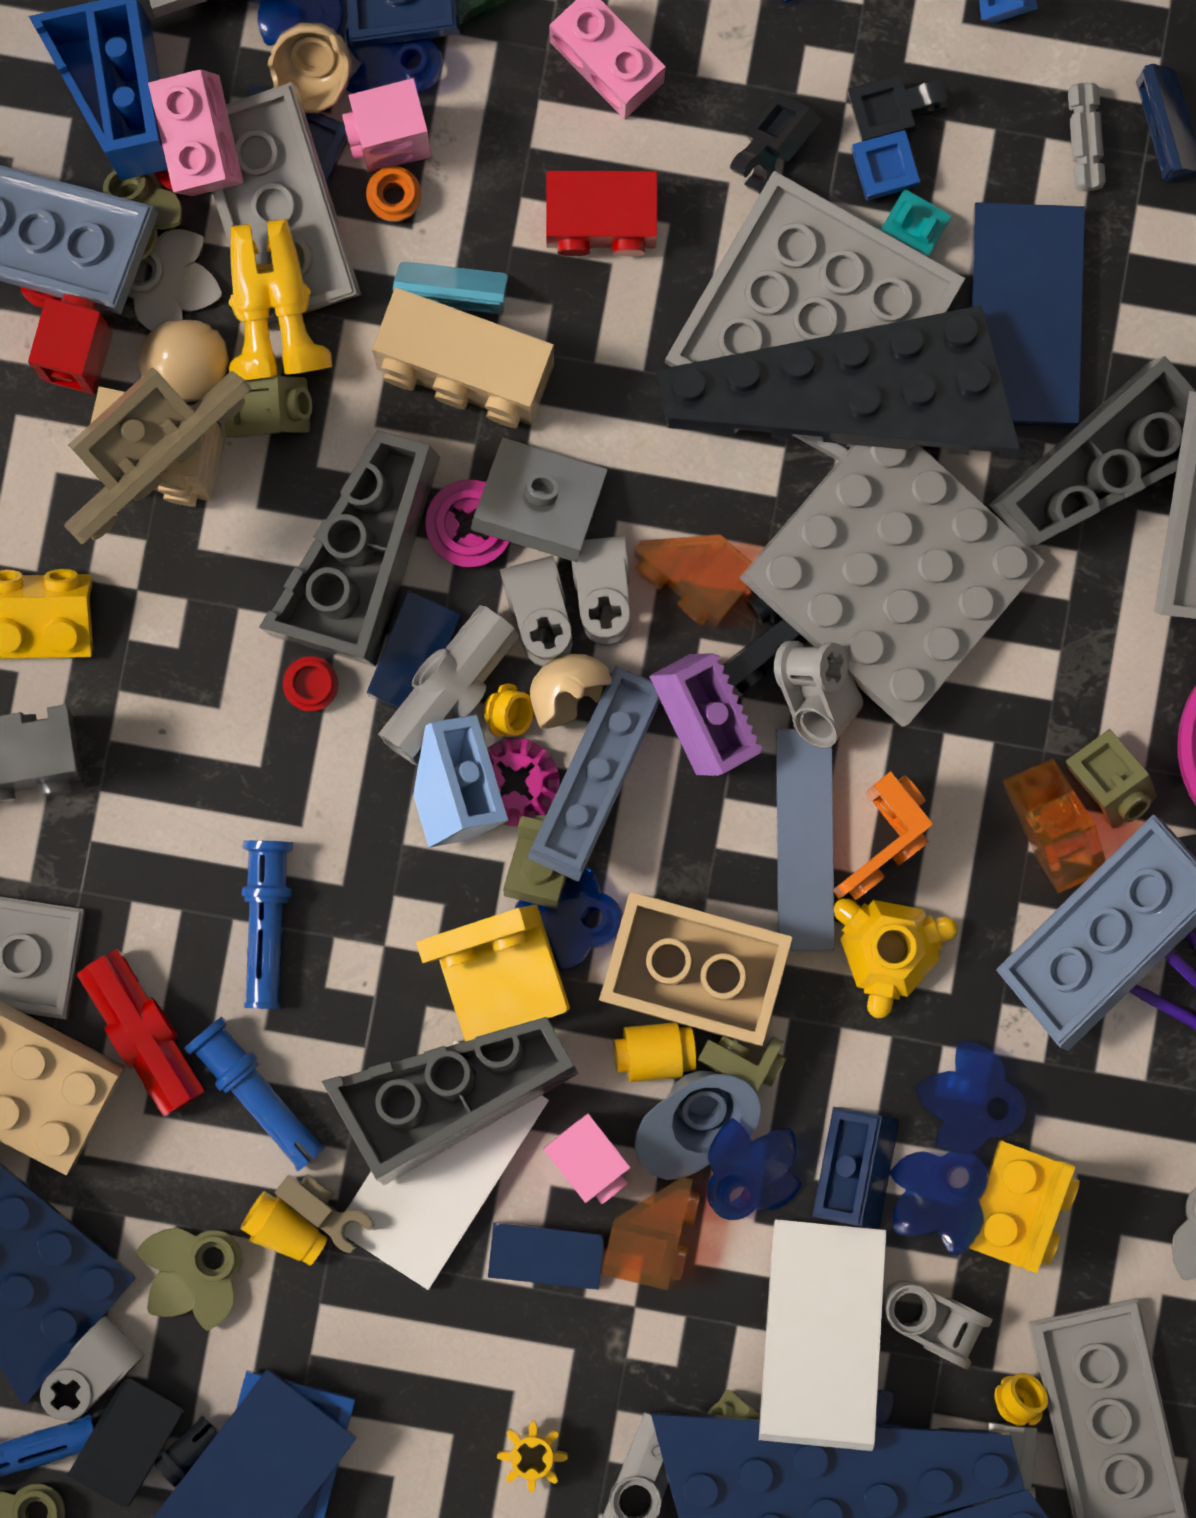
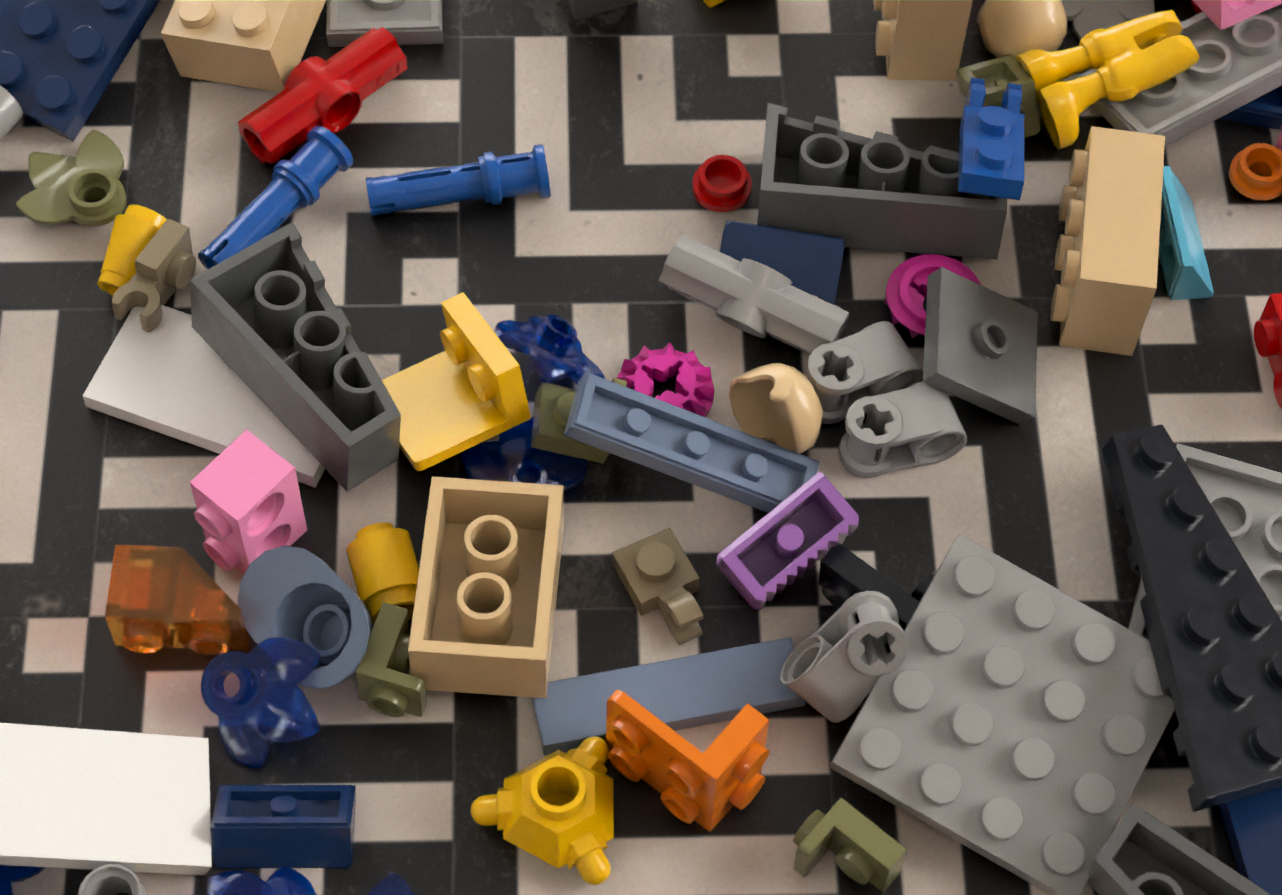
camera: 80 degrees right, 25 degrees down
(355, 438) = (992, 144): none -> blue hinge
(456, 783) = (649, 314): light blue slope -> none
(475, 873) = (549, 345): none -> clear blue plate
(508, 711) = (738, 345): yellow plate -> none
(546, 1255) = (136, 497): dark blue slope -> none
(696, 826) = (663, 579): none -> dark tan plate
(697, 569) = (950, 505): clear orange slope -> none
(975, 718) = (858, 844): none -> olive bracket

